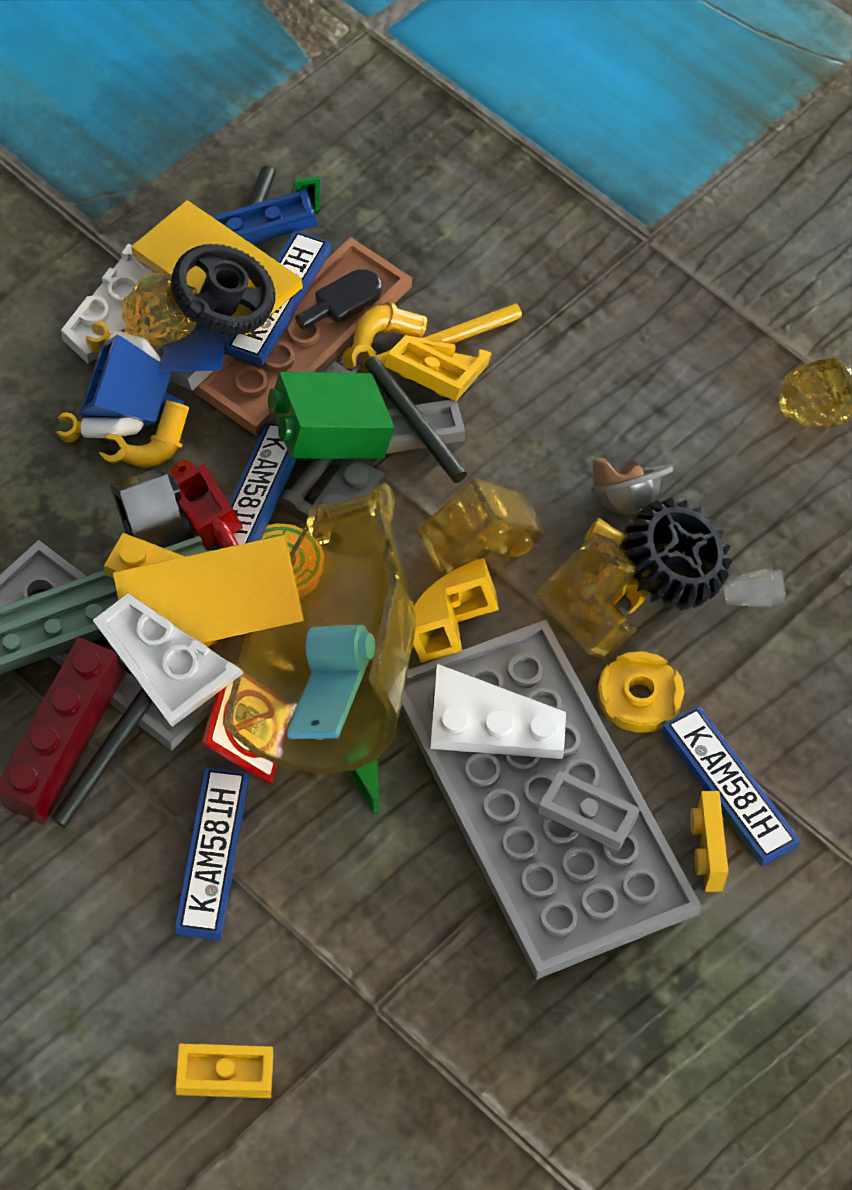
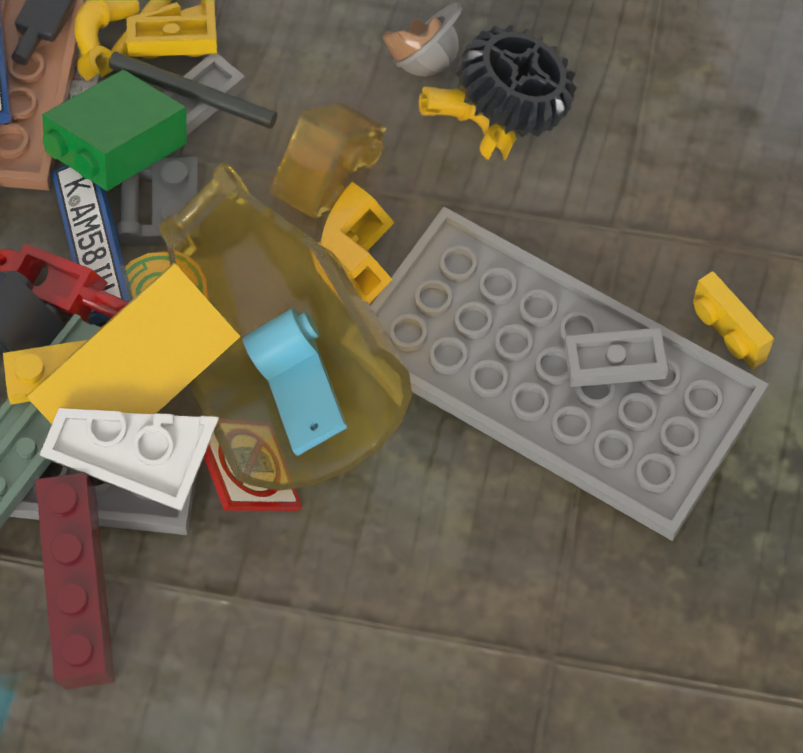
camera: 30 degrees left, 5 degrees up
(102, 759) = (131, 583): pearl dark grey bar -> none
(212, 854) = (298, 610): tile -> none
(367, 782) = (396, 456): green piece -> none
(492, 720) = (466, 326): white wing -> none
(583, 593) = (461, 162): clear yellow brick -> none
(635, 713) = (562, 246): yellow tile -> none
(741, 797) = (696, 255): tile -> none
(756, 589) = (603, 72): clear cone -> none

